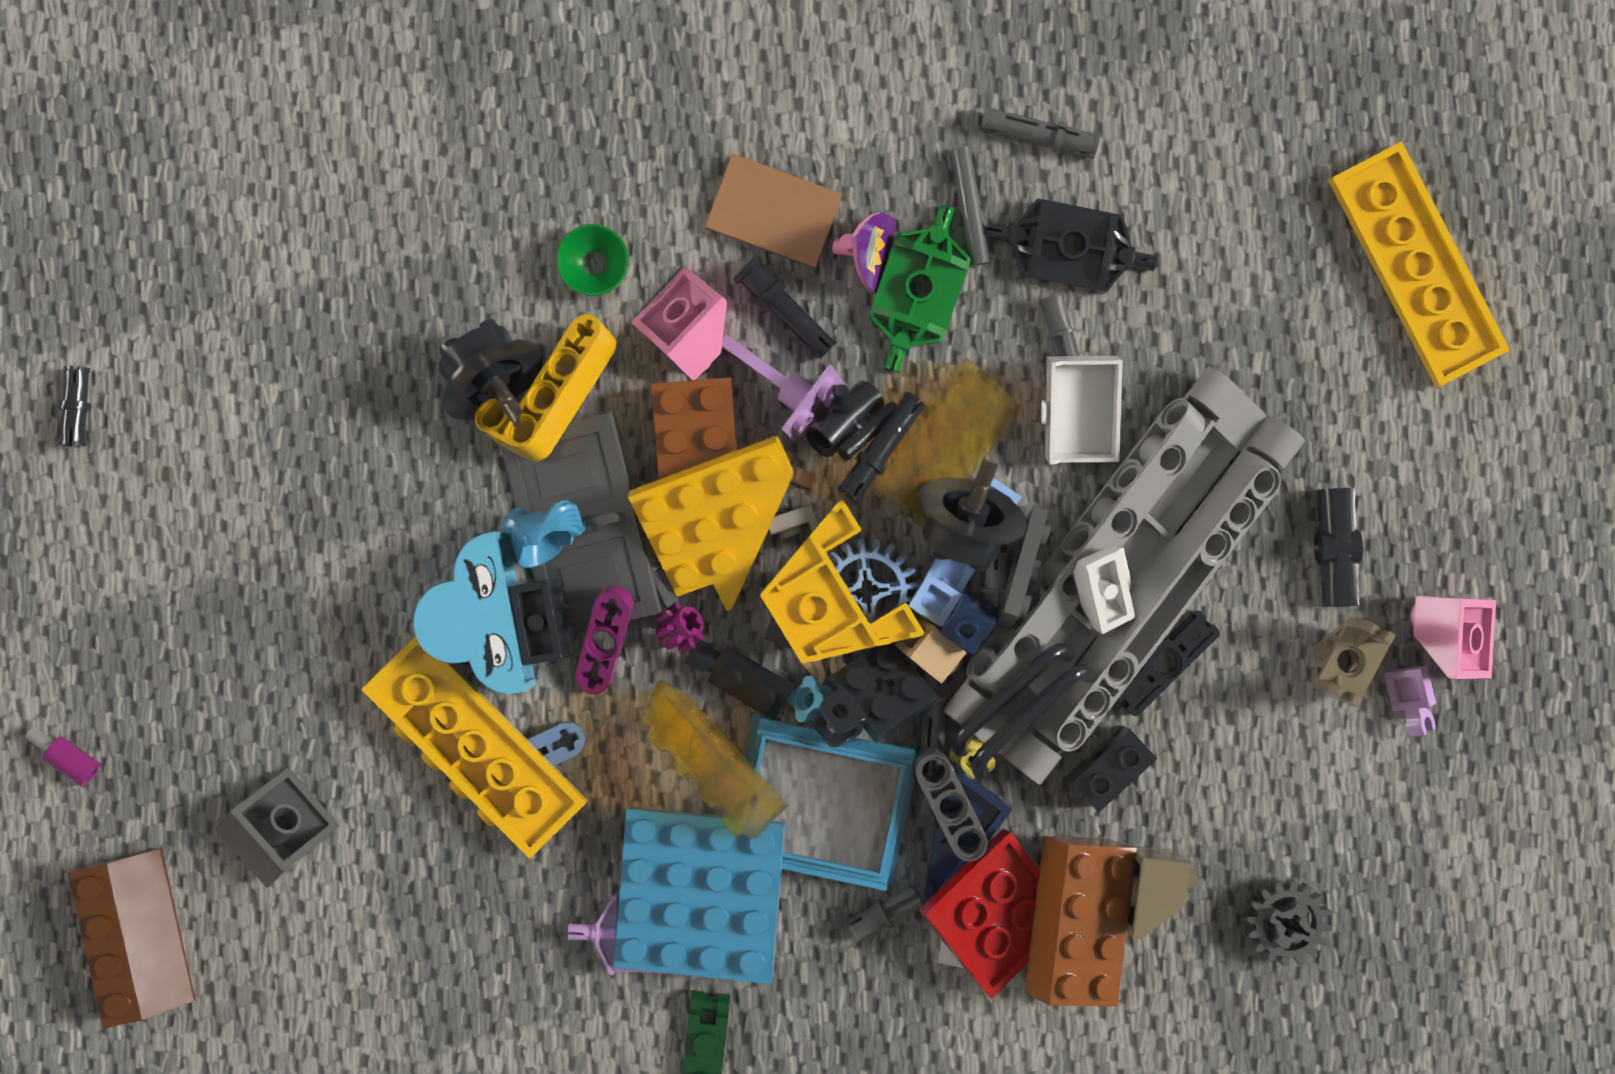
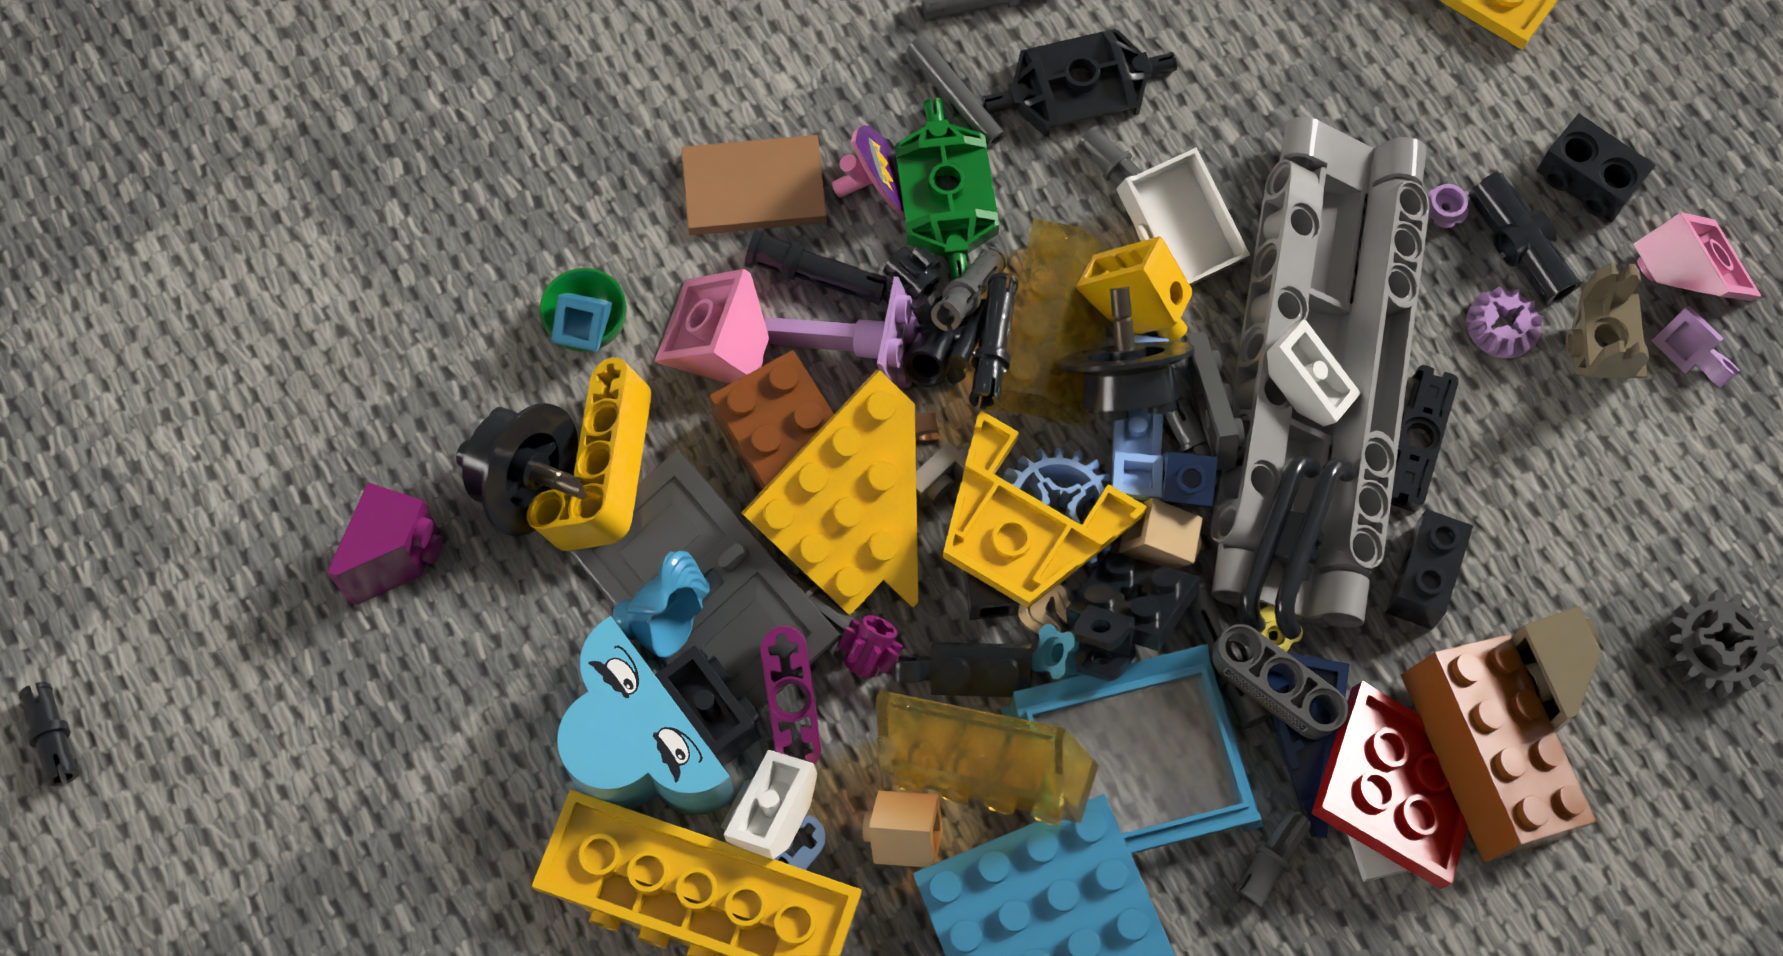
camera: 25 degrees left, 20 degrees down
(364, 383) = (384, 544): none -> magenta slope
(551, 711) = (771, 805): none -> white slope
(584, 272) = (580, 321): none -> dark azure slope
(637, 772) = (904, 828): none -> tan brick
(854, 351) = (914, 271): none -> black gear
(878, 397) = (964, 294): none -> dark grey pin
(1018, 449) = (1154, 282): none -> yellow torso
(1270, 592) = (1504, 341): none -> lavender gear
(1305, 491) = (1454, 198): none -> lavender plate
(1436, 512) = (1600, 160): none -> black brick

